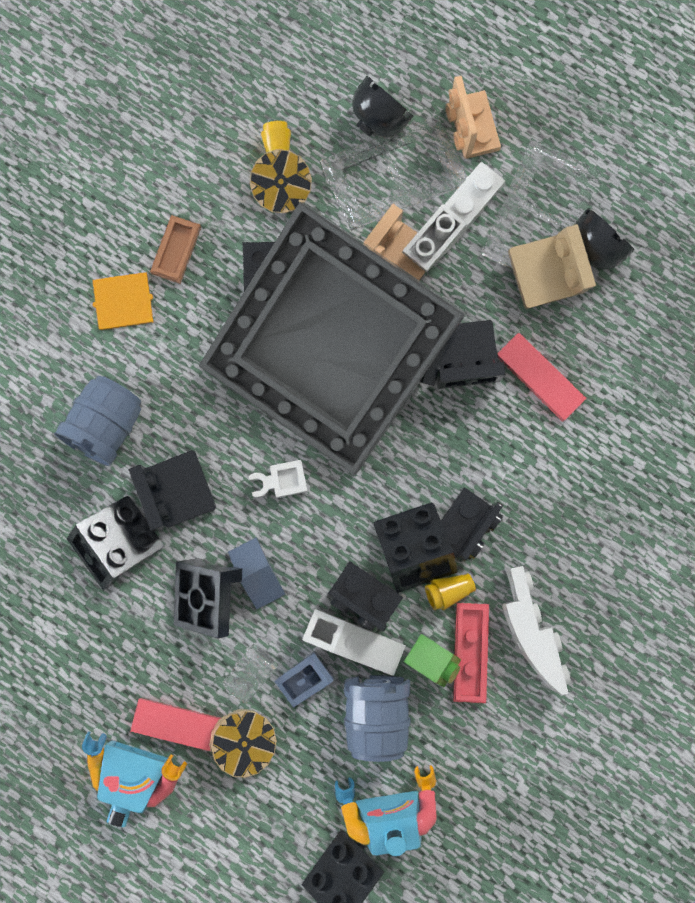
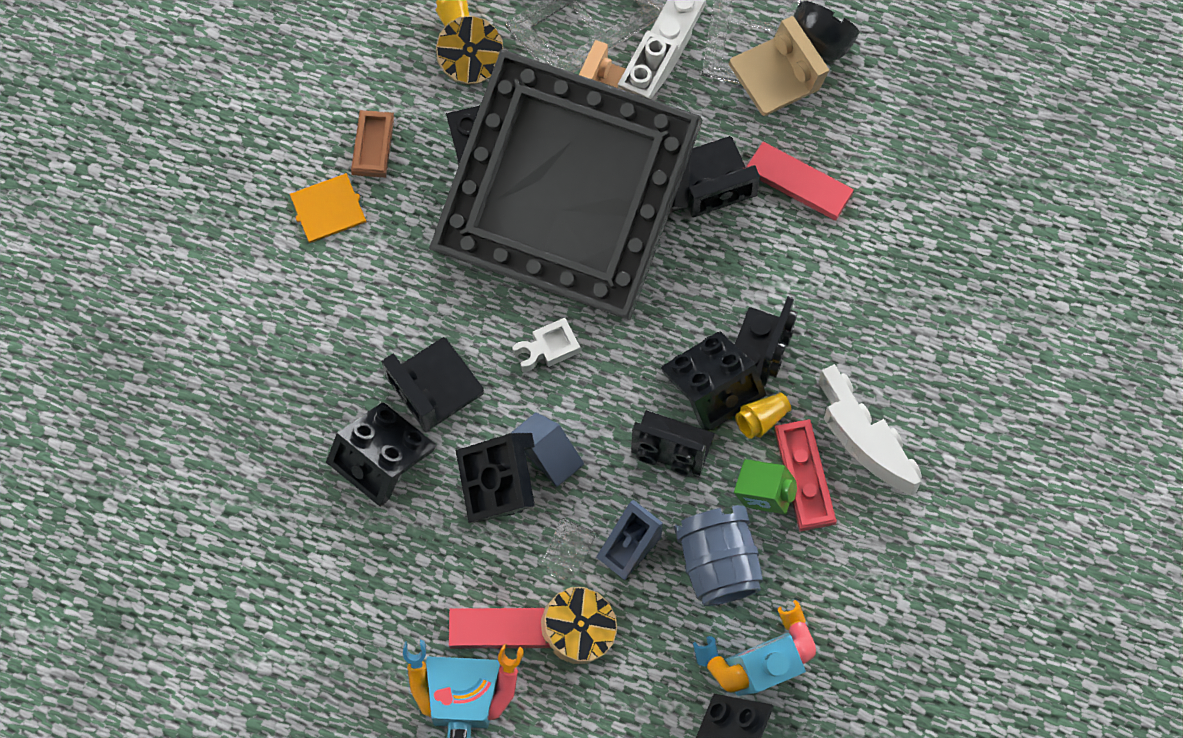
camera: 10 degrees left, 15 degrees down
(100, 420) = (335, 325): sand blue piece -> none
(353, 642) = (669, 487): white slope -> none

